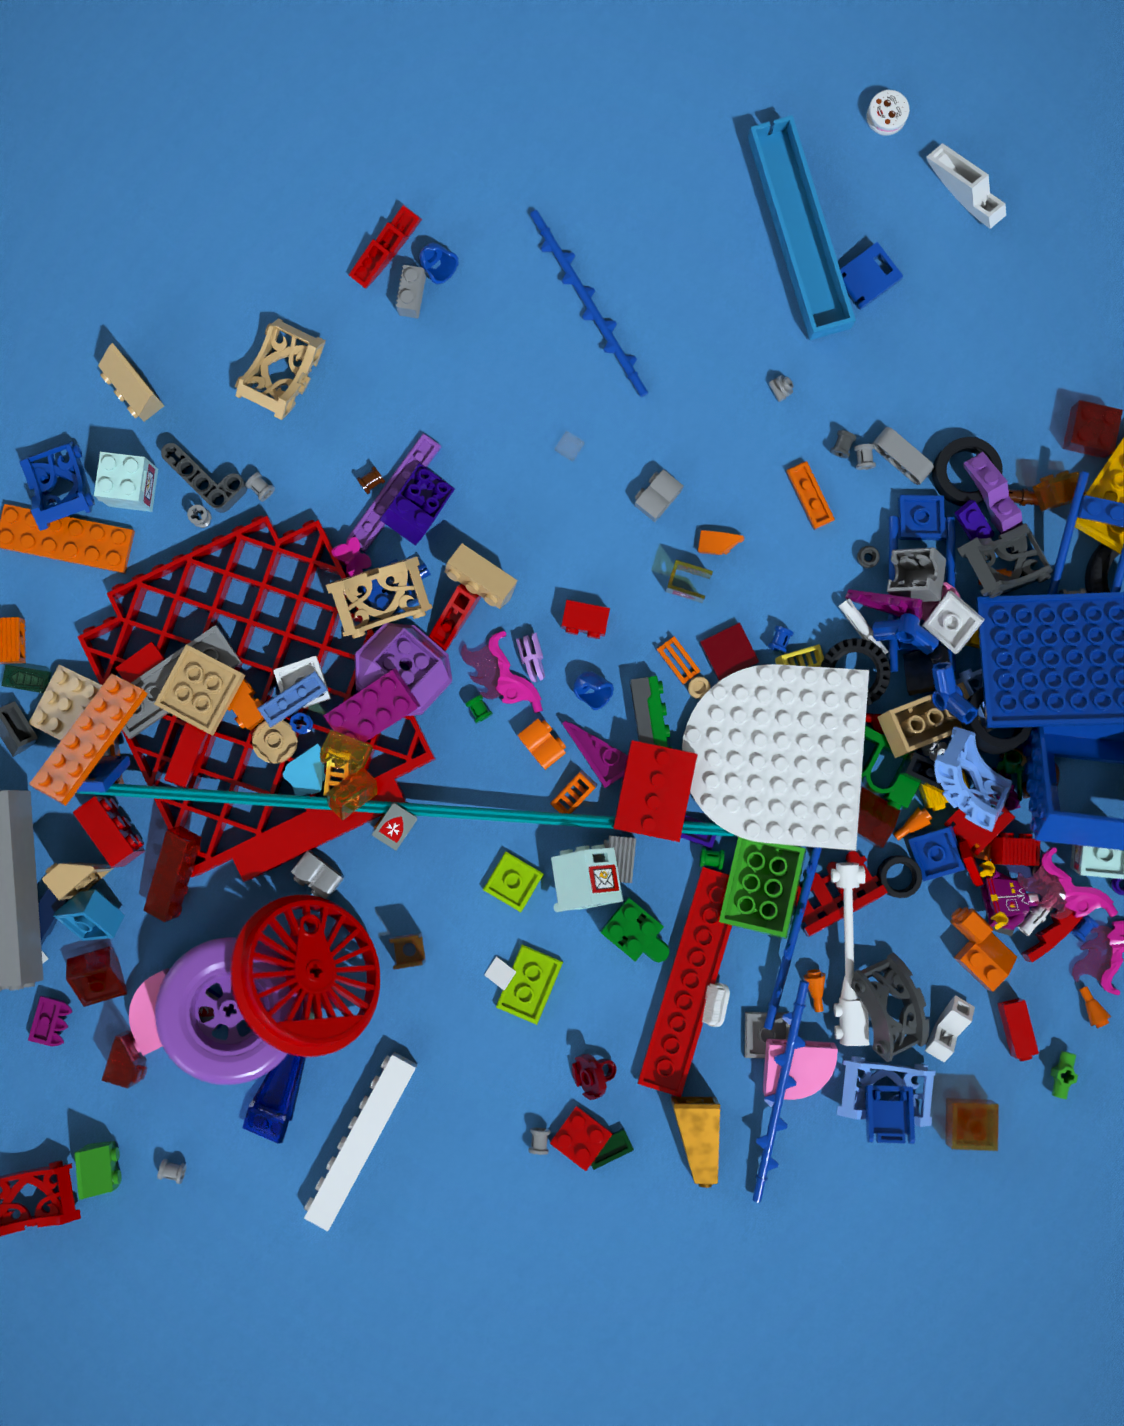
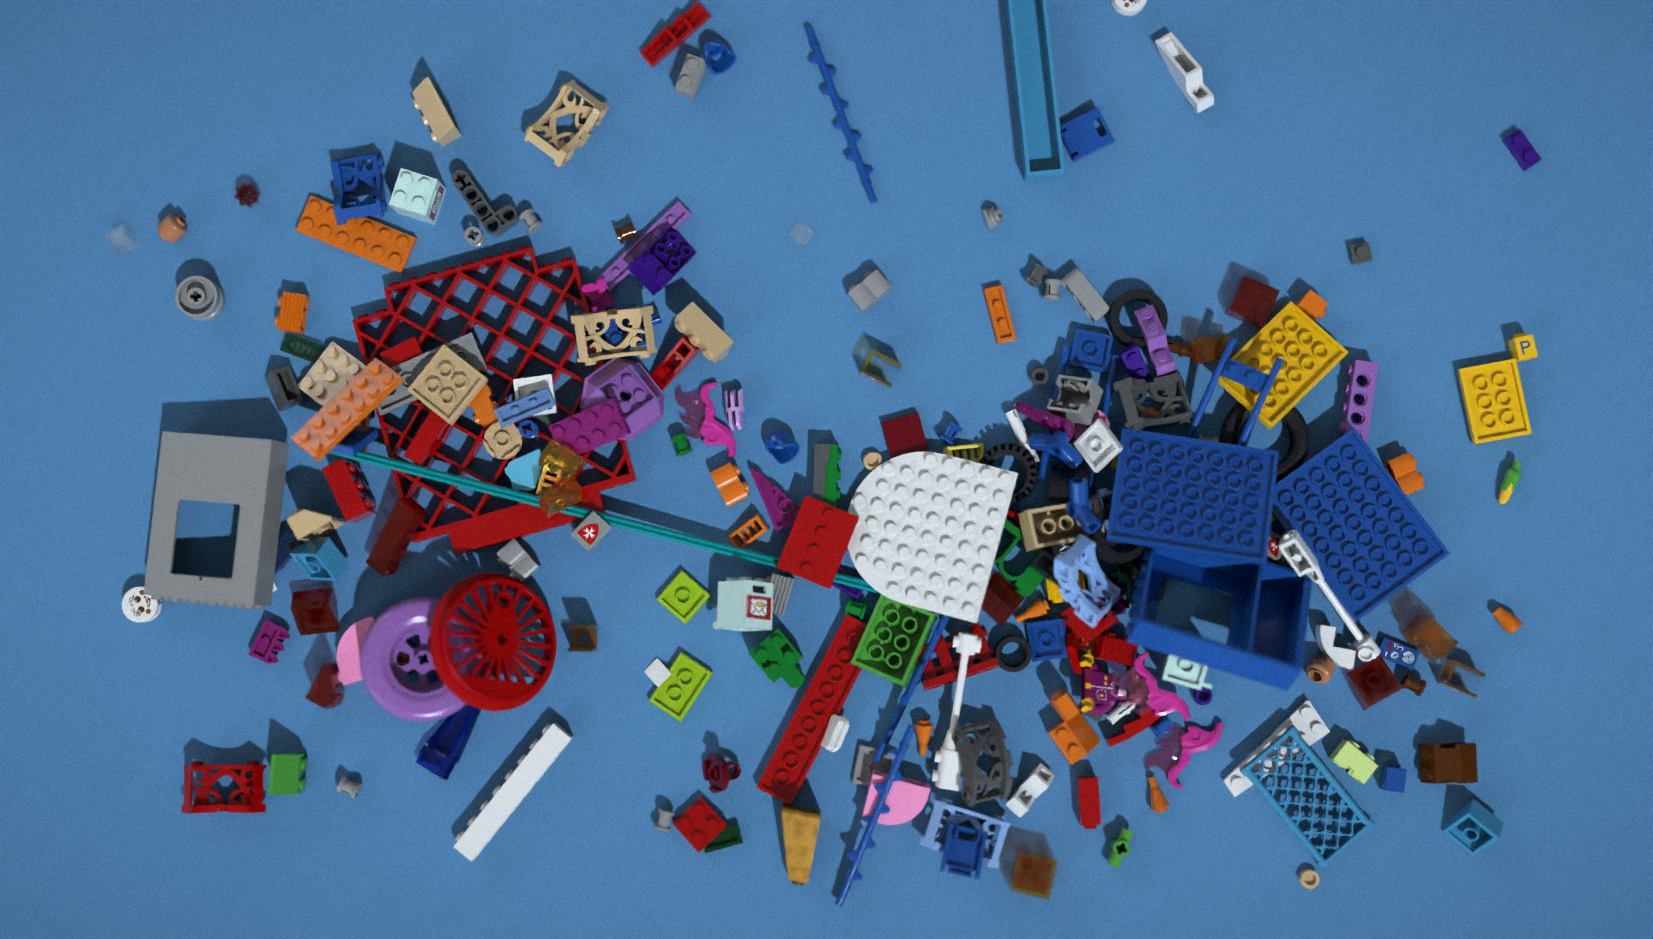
camera: 10 degrees right, 0 degrees up
(585, 619) = (786, 384): red brick -> none
(696, 670) = (852, 420): orange tile -> none
(718, 542) = (912, 340): orange slope -> none

